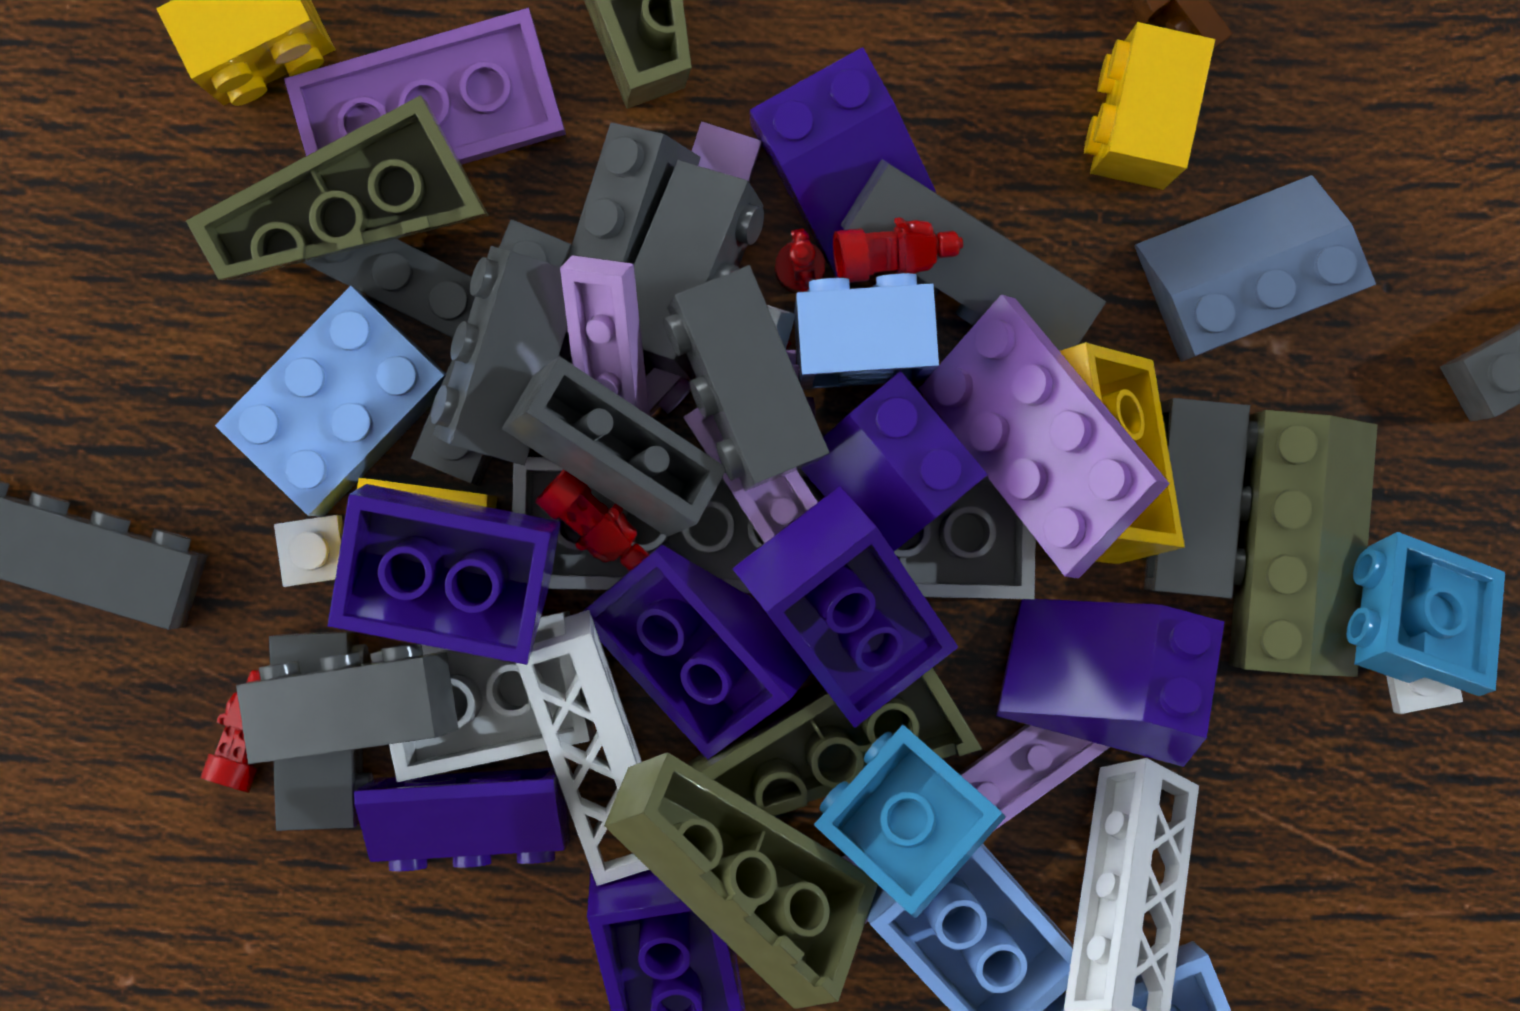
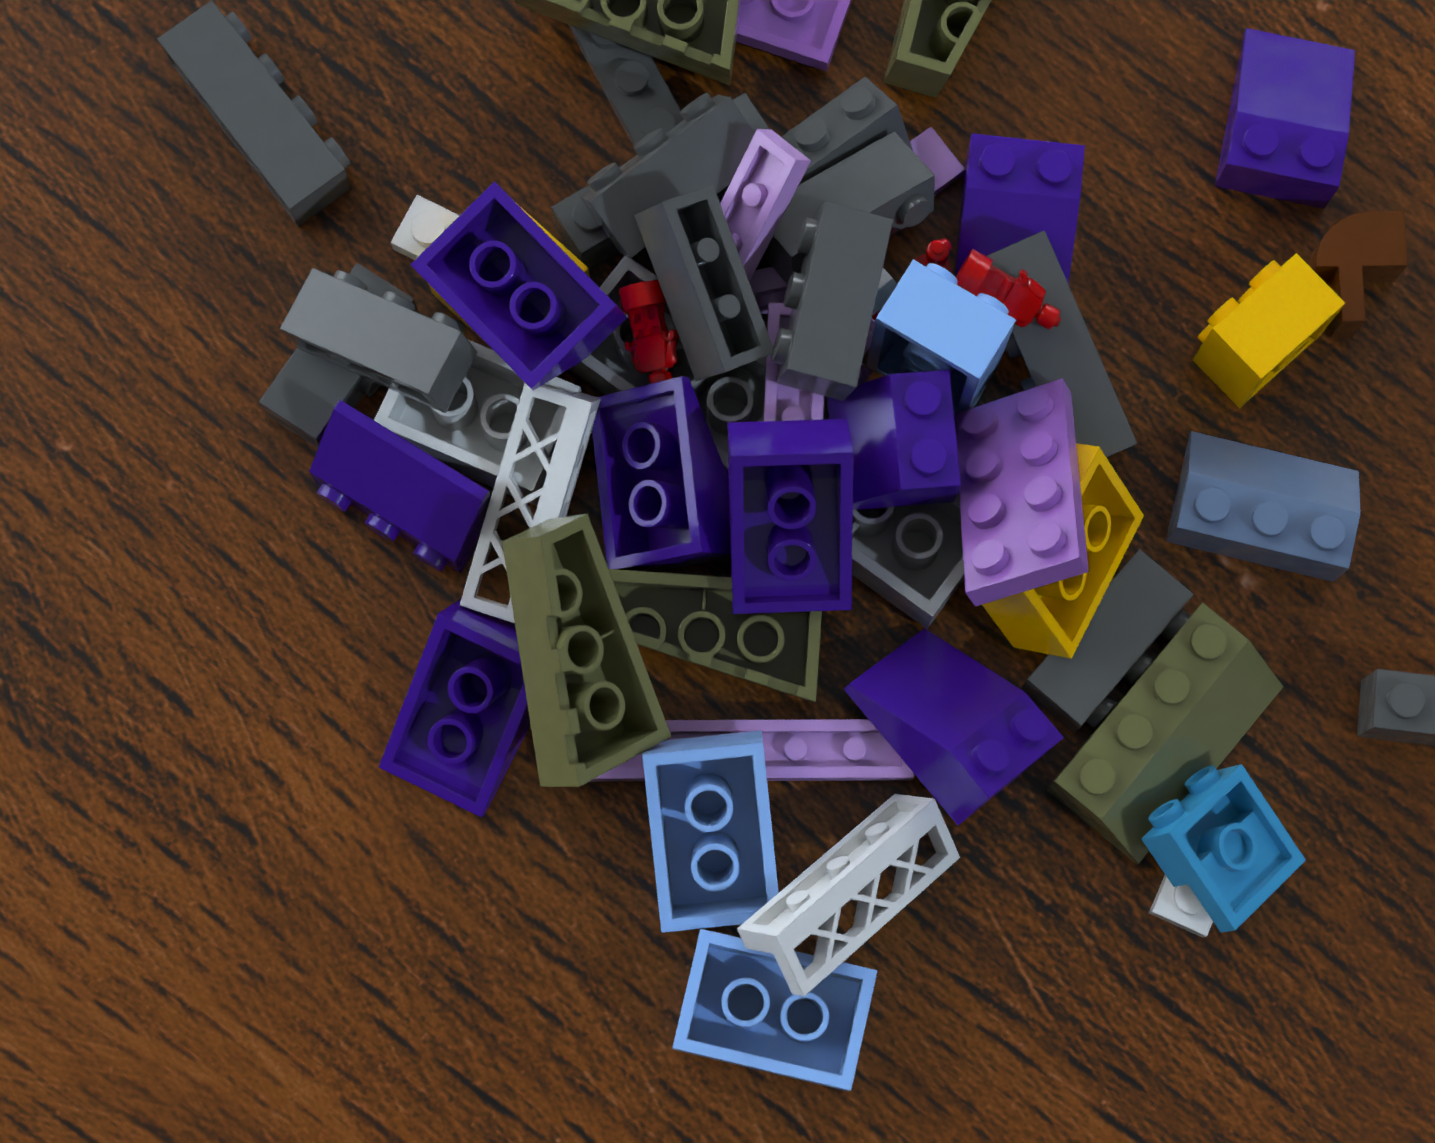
camera: 30 degrees right, 10 degrees down
(230, 762) = (260, 340): red piece -> none
(334, 403) = (526, 132): light blue brick -> none
(908, 819) = (725, 697): dark azure plate -> none

